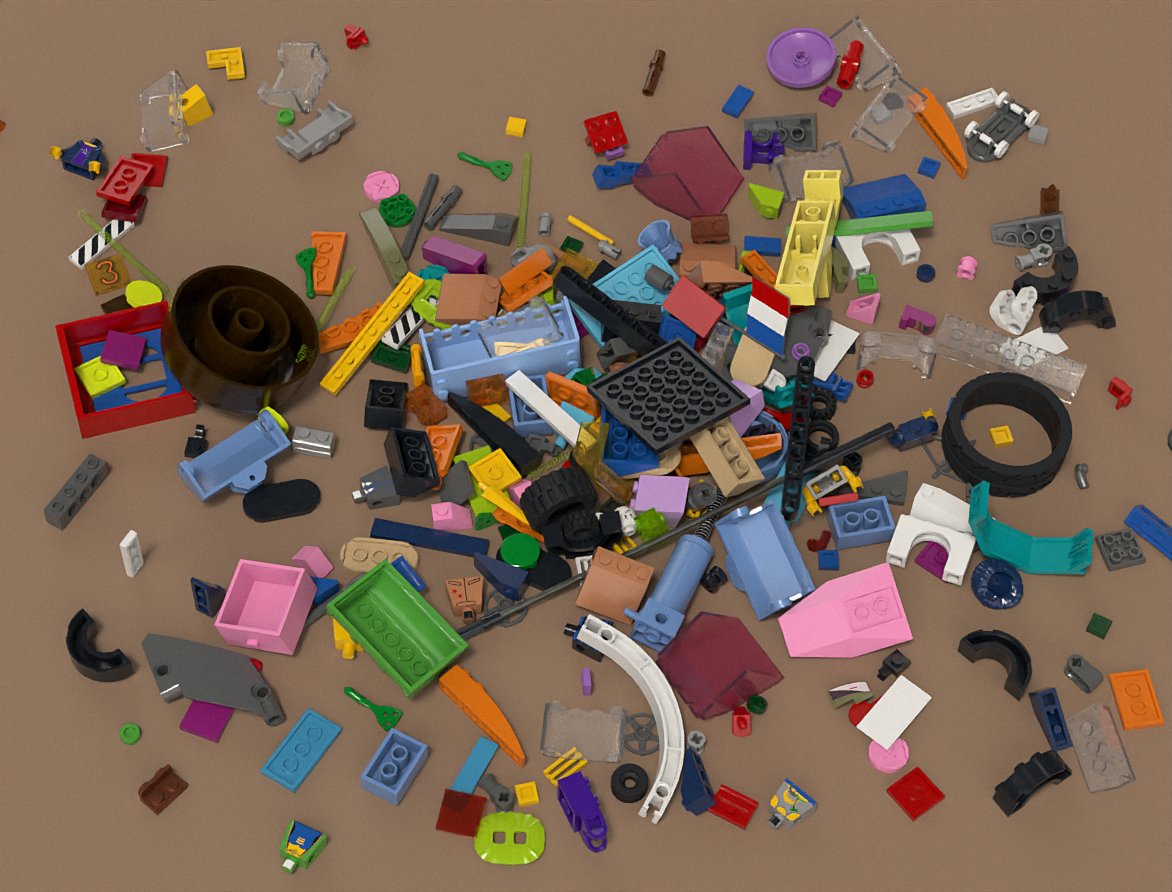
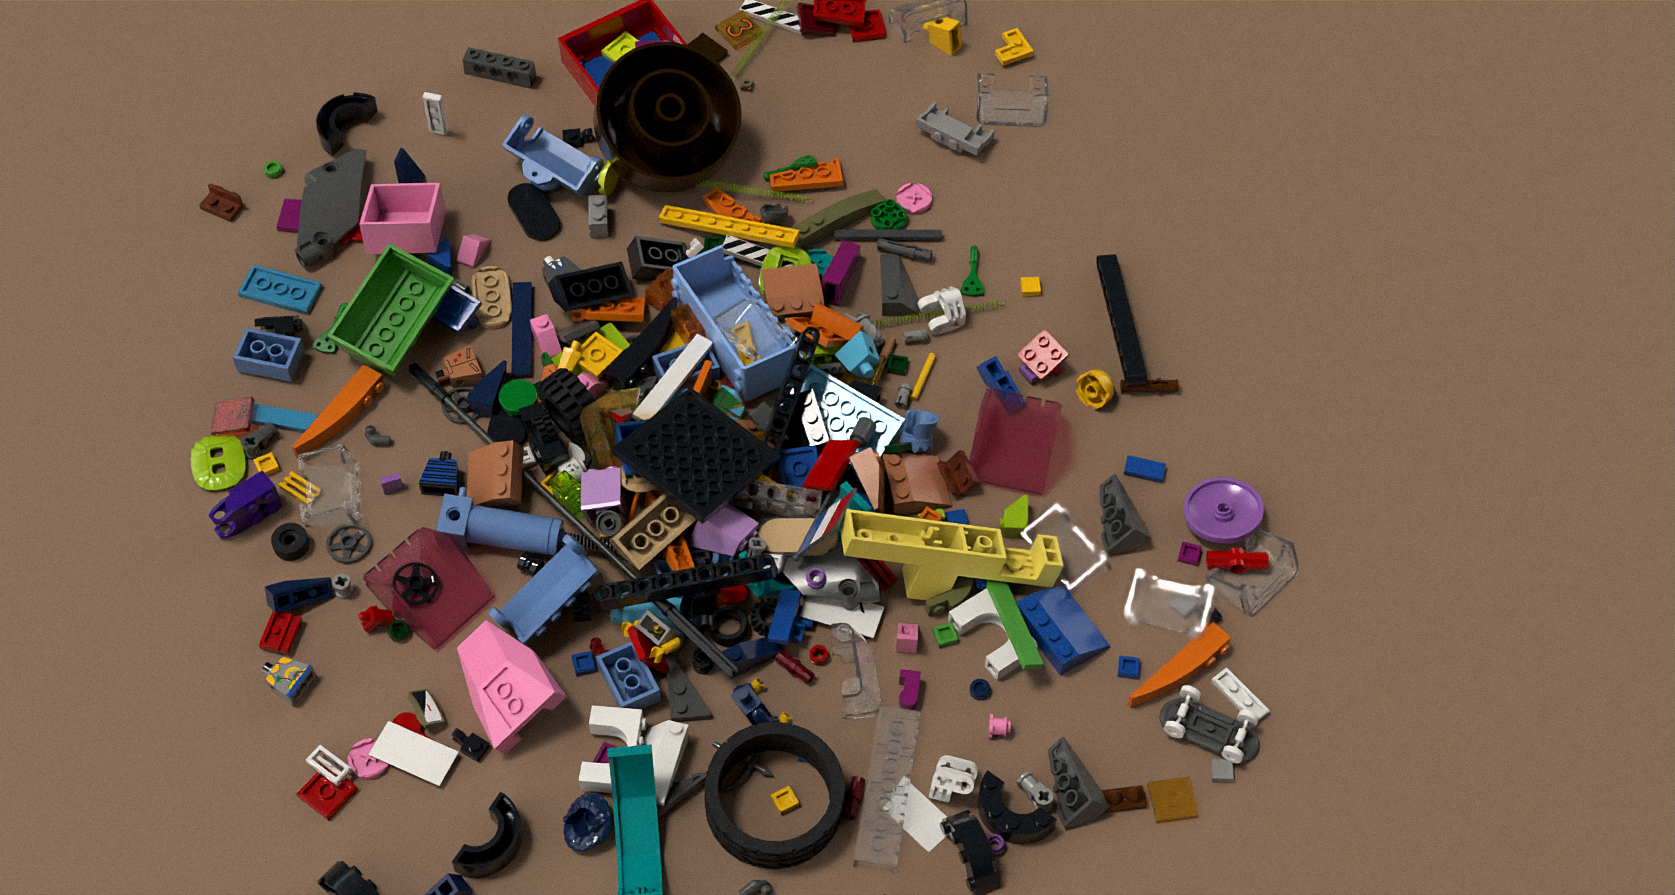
camera: 75 degrees right, 0 degrees up
(142, 293) = (723, 53): neon yellow tile -> none
(285, 117) = (967, 107): bright green tile -> none
(301, 846) = (182, 309): torso -> none
(355, 36) = (1085, 134): red piece -> none
(358, 747) = (282, 324): none -> black plate
(365, 296) = (773, 213): none -> dark grey hair
(381, 371) = (695, 248): none -> white tile
(524, 690) = (374, 438): none -> dark grey arm
(525, 181) = (951, 303): none -> white piece
(570, 257) = (859, 355): none -> medium azure torso
(580, 69) = (1121, 320): none -> black beam
(650, 107) = (1095, 388): none -> yellow cylinder
(660, 698) = (370, 550): white piece -> none
(677, 260) = (898, 447): none -> dark green tile
(709, 678) = (416, 583): none -> black wheel
(751, 148) = (1079, 492): dark purple tile -> none
(763, 385) = (754, 548): none -> light grey bush
(835, 388) = (784, 616): none -> blue tile
(853, 424) = (752, 654): none -> dark blue slope
(873, 398) = (794, 666): none -> dark red pin
(880, 793) = (340, 775): none -> white tile
(1057, 172) = (1172, 799): none -> clear yellow tile

